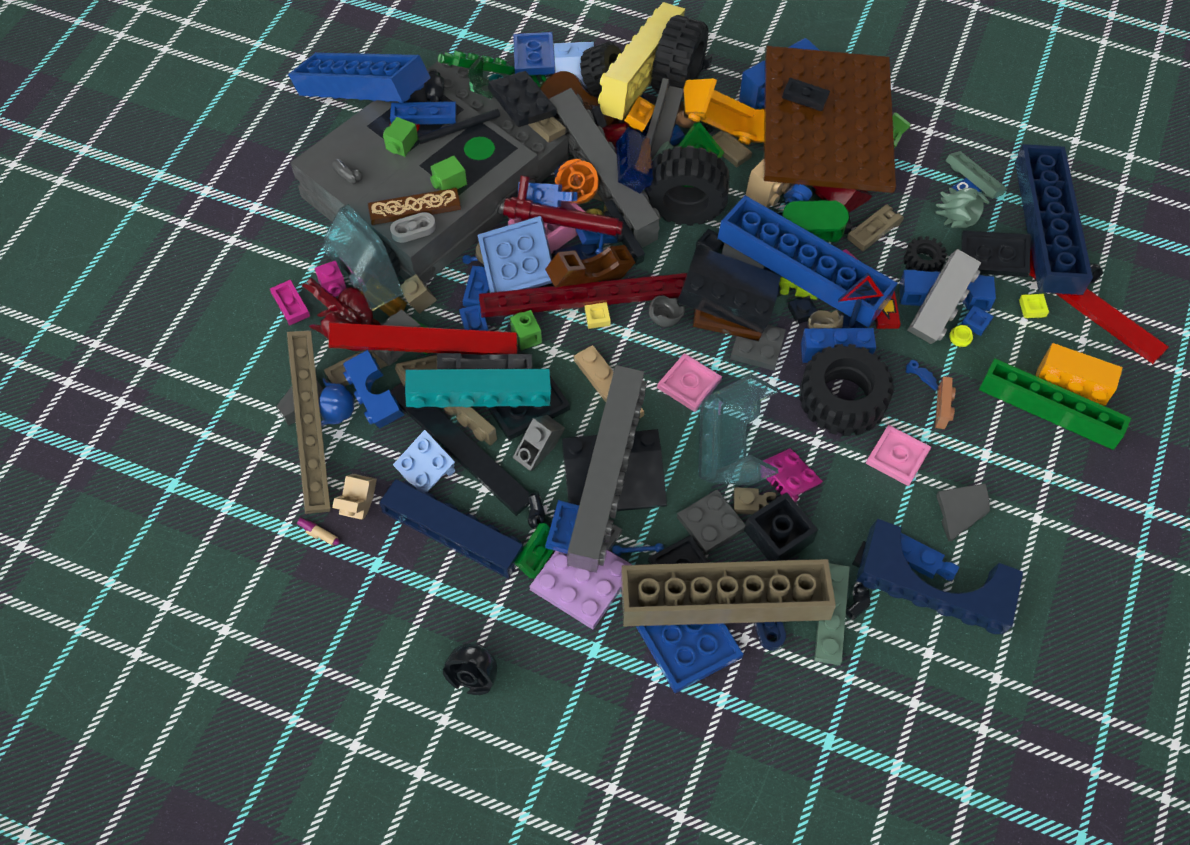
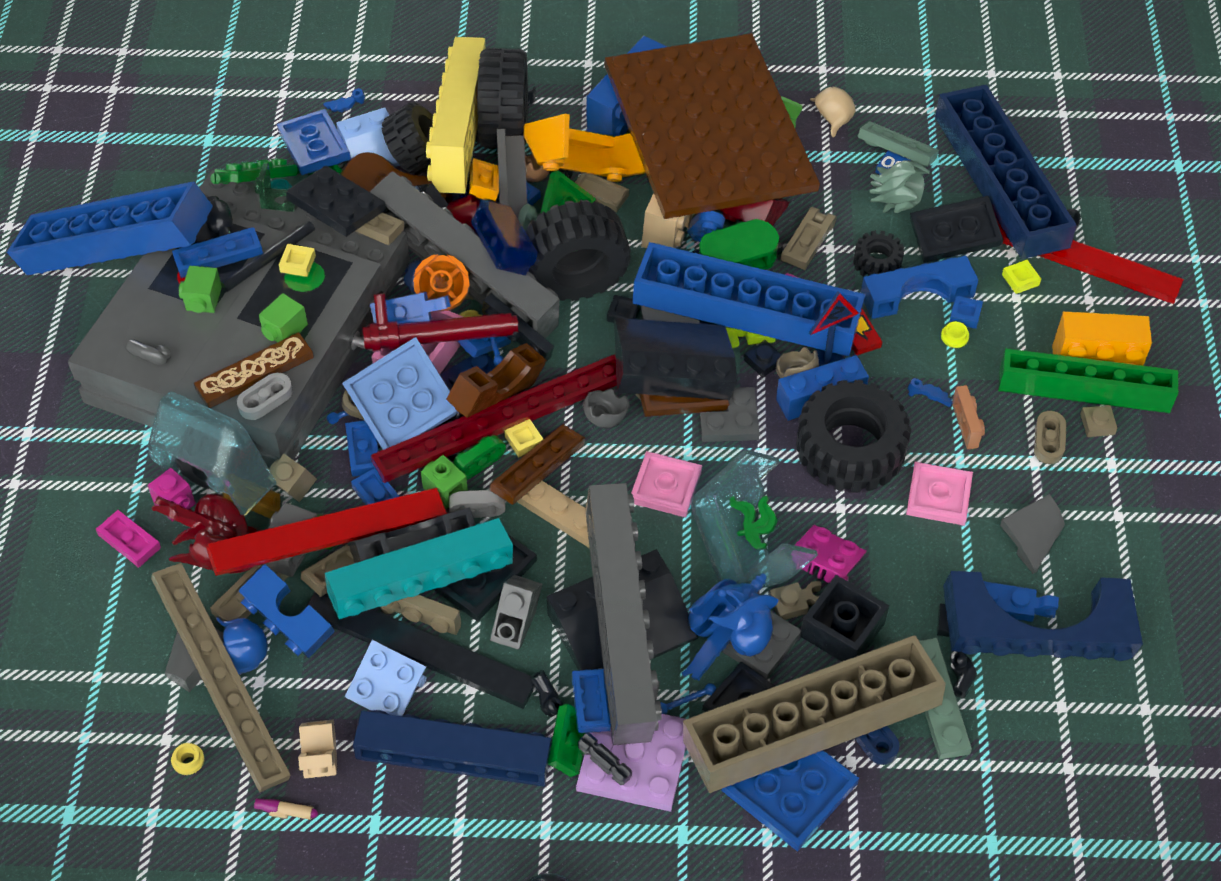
camera: 20 degrees left, 5 degrees down
(264, 467) = (184, 751): none -> light yellow plate
(477, 134) = (297, 260): none -> light yellow plate
(544, 353) = (481, 502): none -> light grey beam
(556, 574) = (605, 759): none -> black axle
(558, 319) = (480, 456): none -> green plate
(568, 32) = (346, 103): none -> blue piece
(598, 338) = (537, 464): none -> reddish brown tile
(692, 497) = (734, 615): none -> blue hair
(741, 437) = (752, 529): none -> green piece
(805, 94) = (676, 103): black plate -> none
(937, 133) = (835, 107): none -> tan hair
(944, 297) = (922, 295): light grey brick -> none
(1003, 440) = (1050, 439): none -> dark tan plate
(1051, 438) = (1098, 421): none -> dark tan plate

